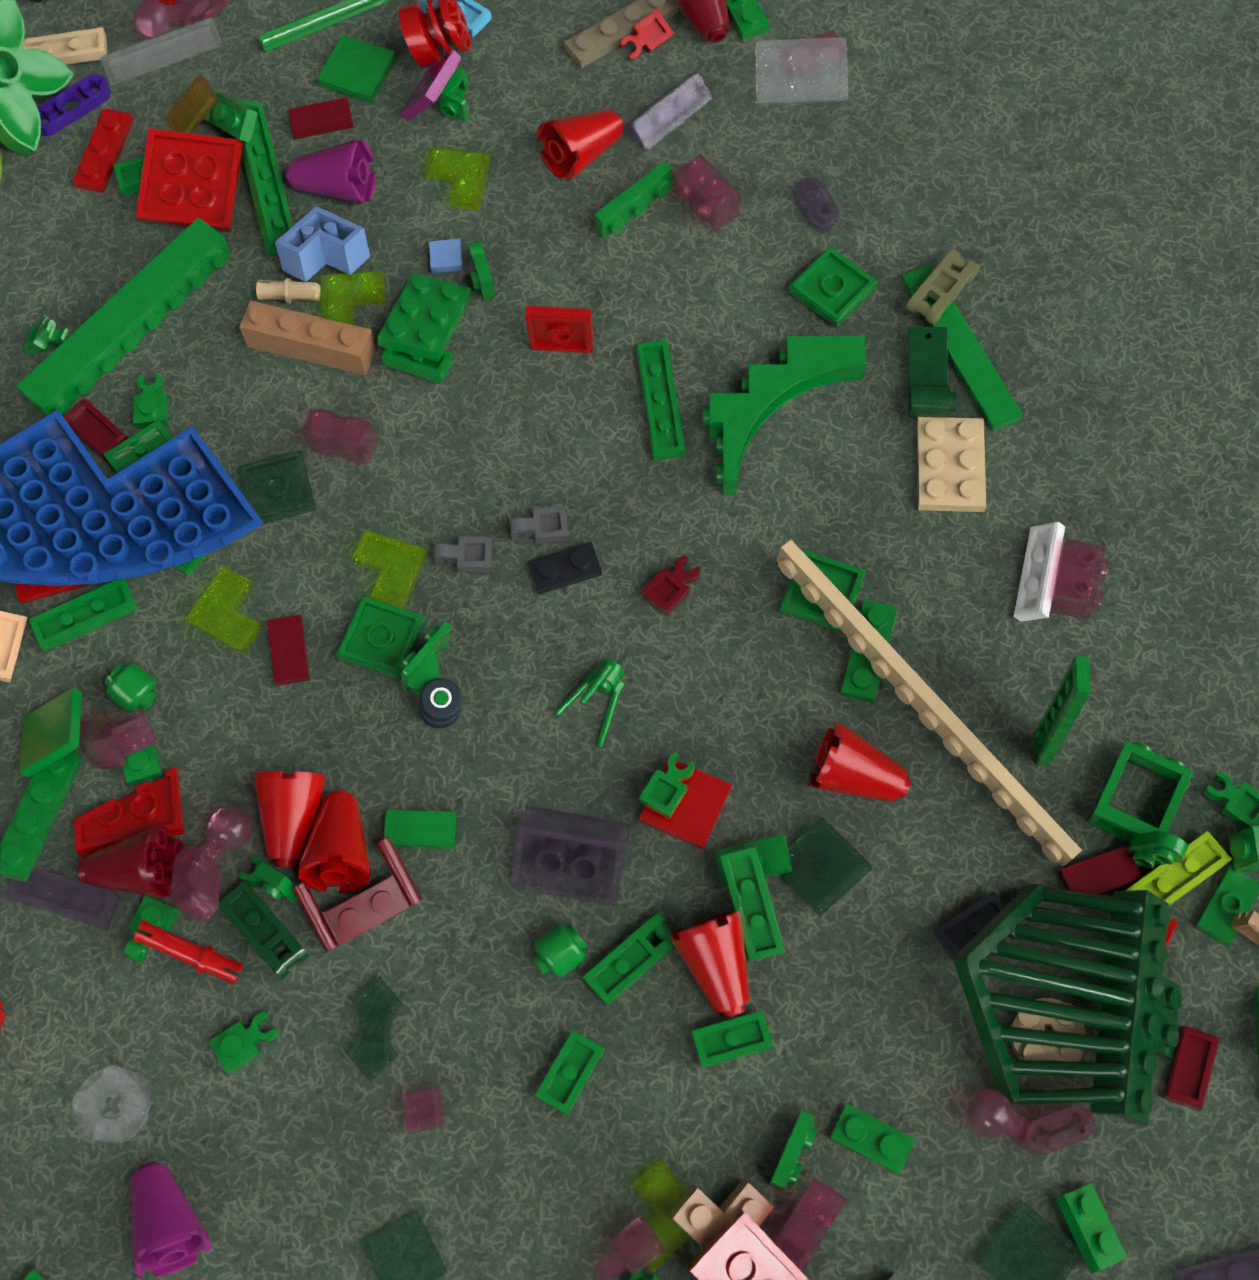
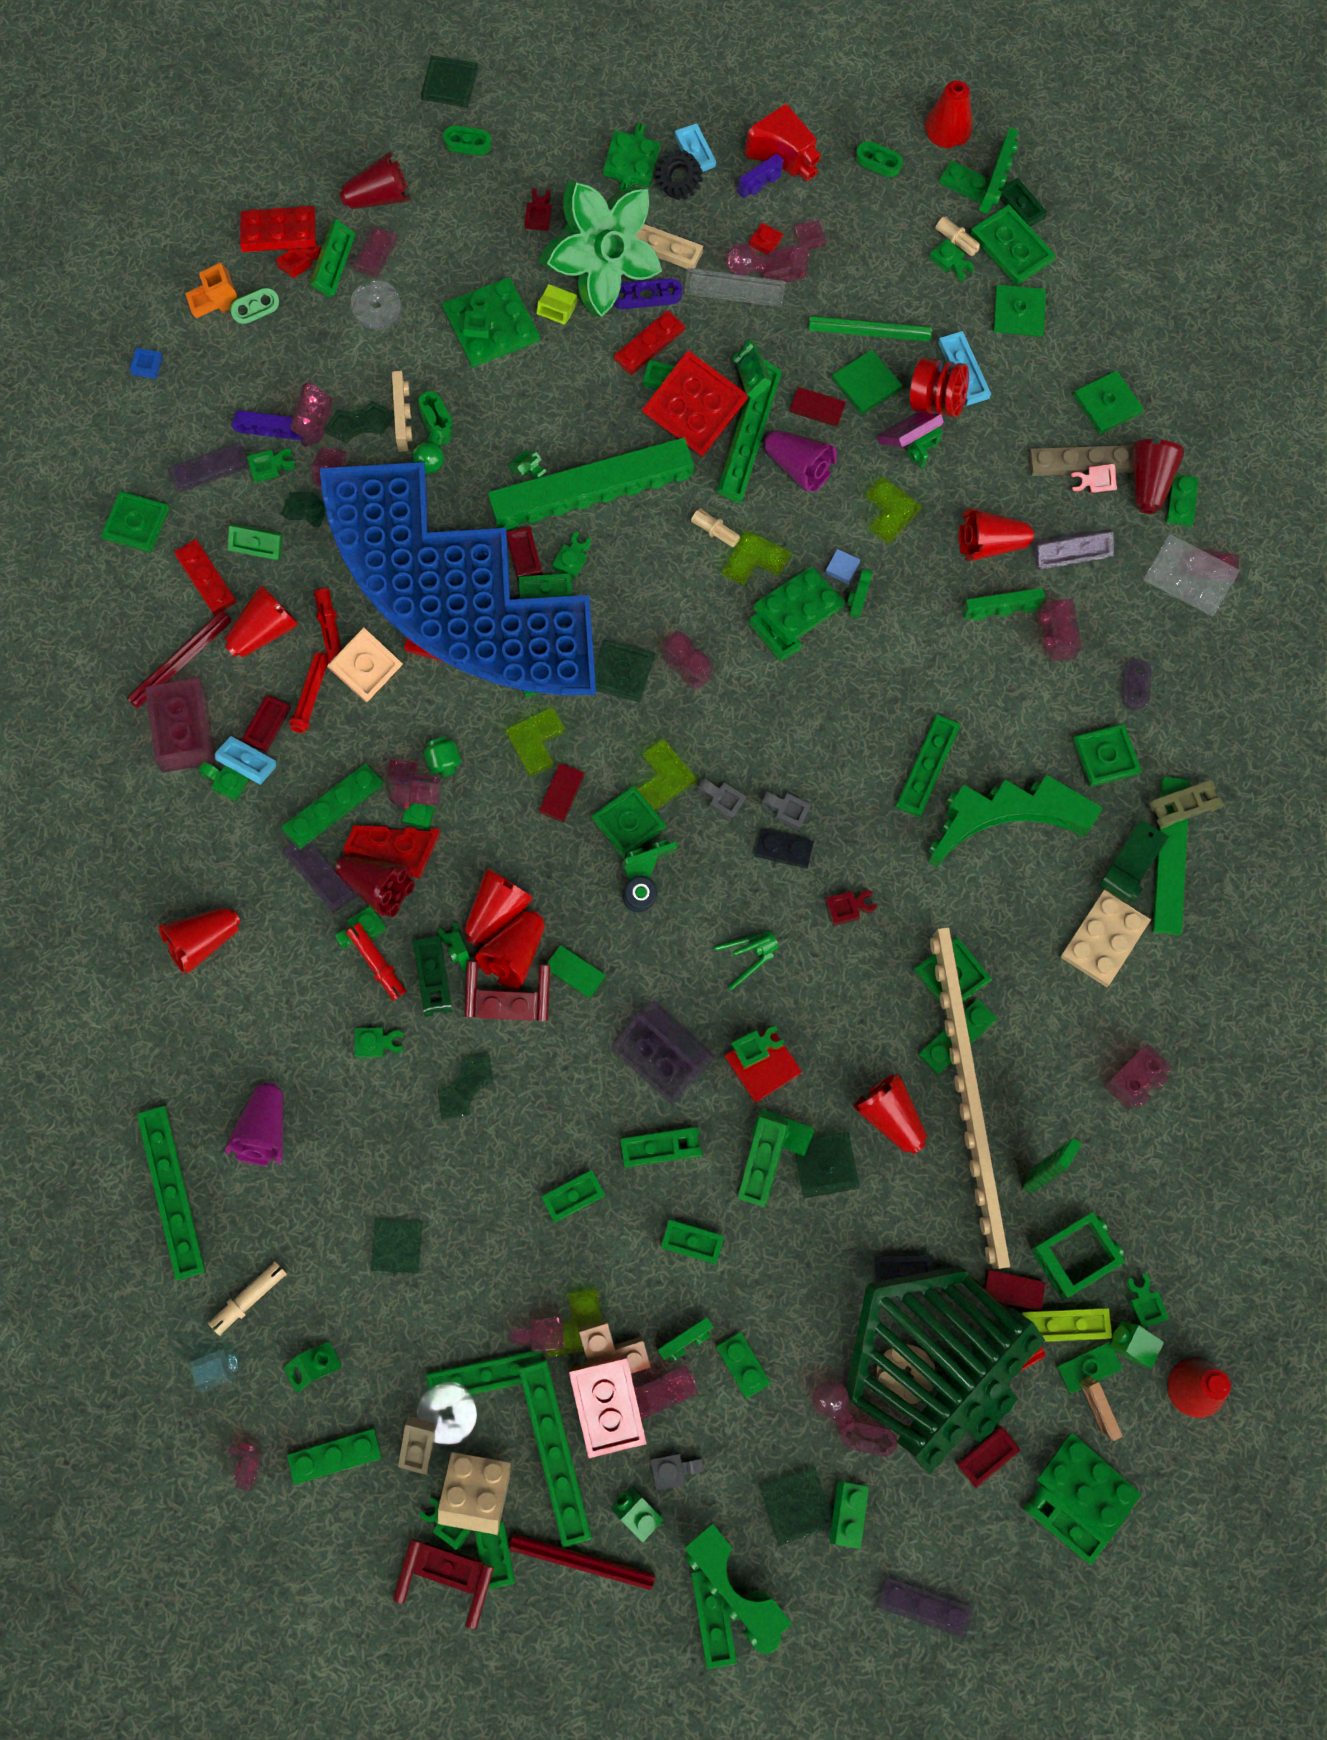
camera: 25 degrees right, 5 degrees up
(50, 732) = (372, 756): green tile -> none
(83, 614) = (440, 684): green plate -> none
(92, 1099) = (260, 1020): clear plate -> none
(192, 106) = (728, 348): clear orange tile -> none
(194, 869) = (412, 909): clear pink beam -> none
(308, 337) = (708, 573): medium nougat brick -> none
(322, 240) = (758, 505): medium blue brick -> none
(424, 1110) = (464, 1160): clear pink plate -> none
(559, 950) = (616, 1111): green head -> none
(560, 329) = (887, 673): red tile -> none
(717, 960) = (715, 1183): red cone -> none
(1039, 571) = (1115, 1055): white tile -> none
(1157, 849) = (1062, 1298): green plate -> none

